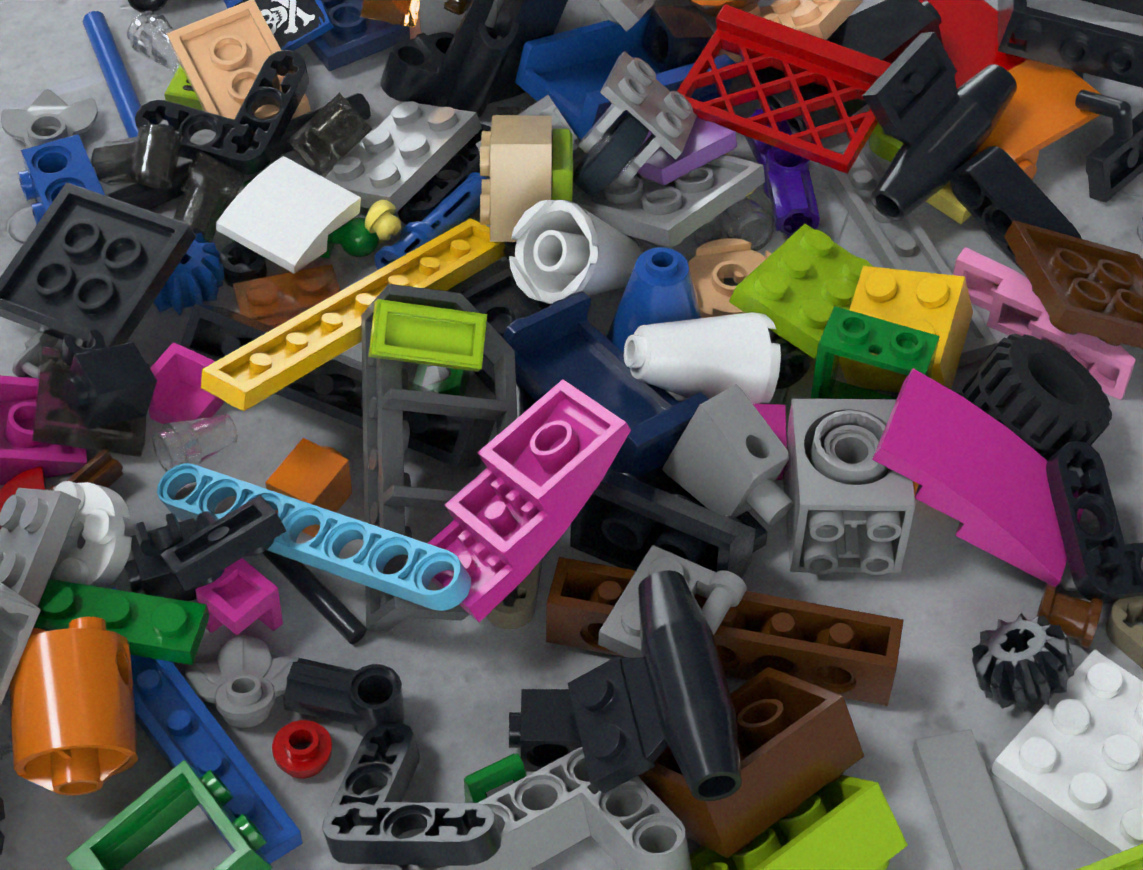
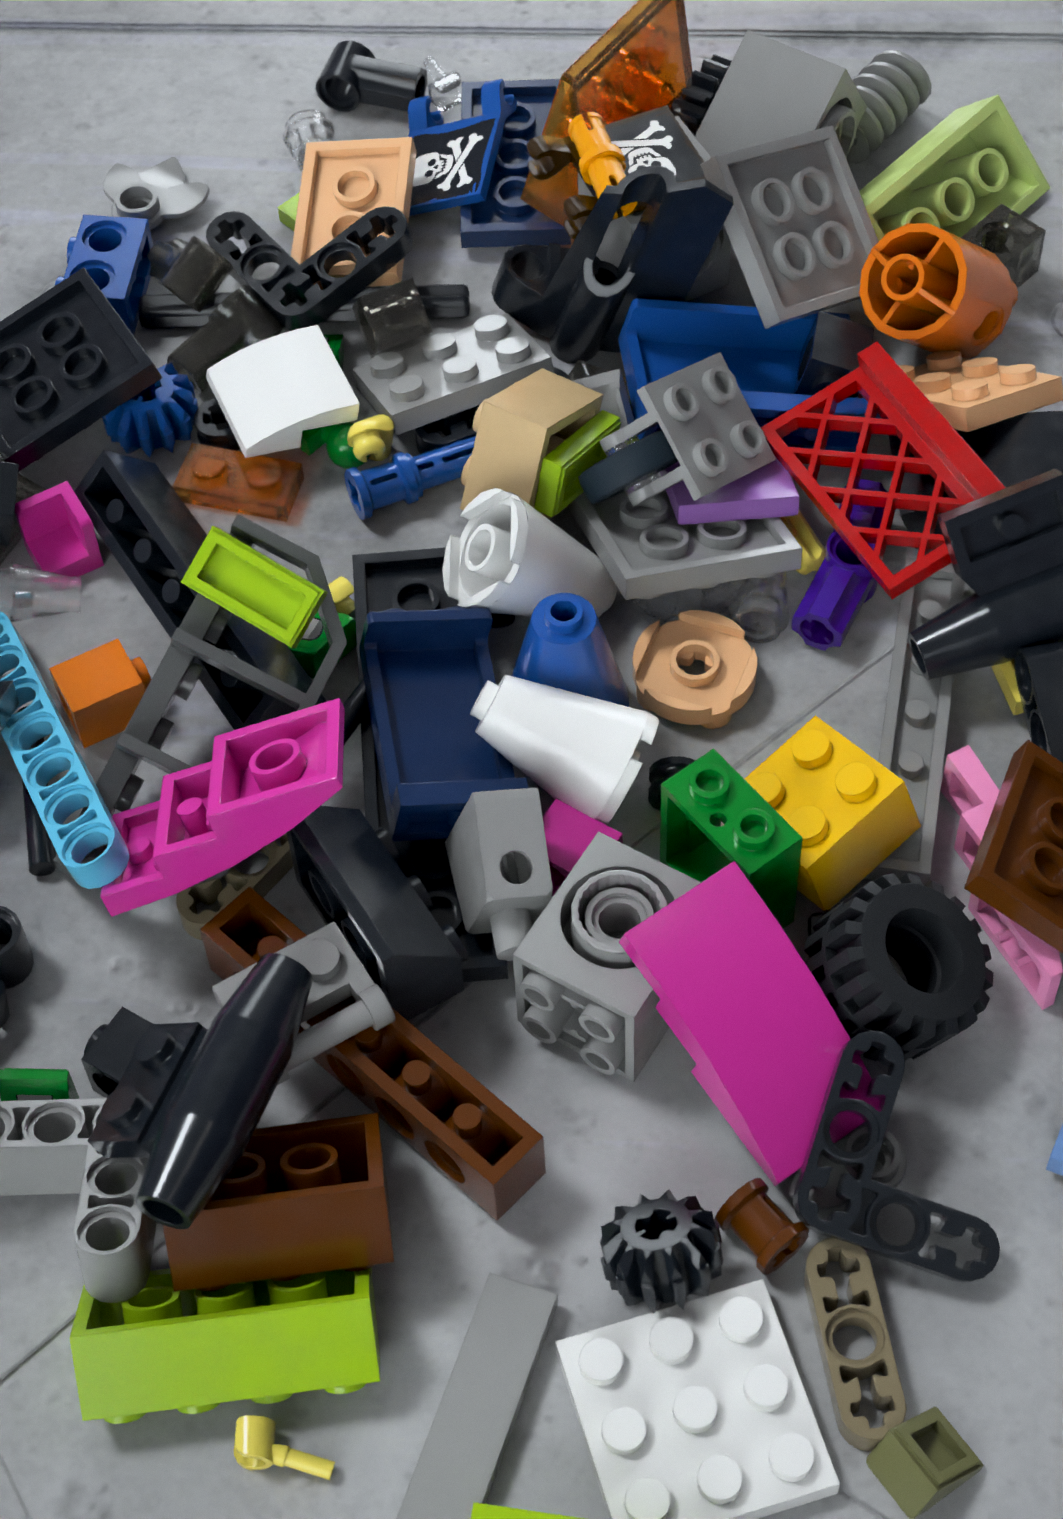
camera: 35 degrees right, 5 degrees up
(113, 70) = (254, 157): blue piece -> none
(335, 323) = (173, 535): yellow plate -> none
(801, 286) = (755, 703): lime plate -> none

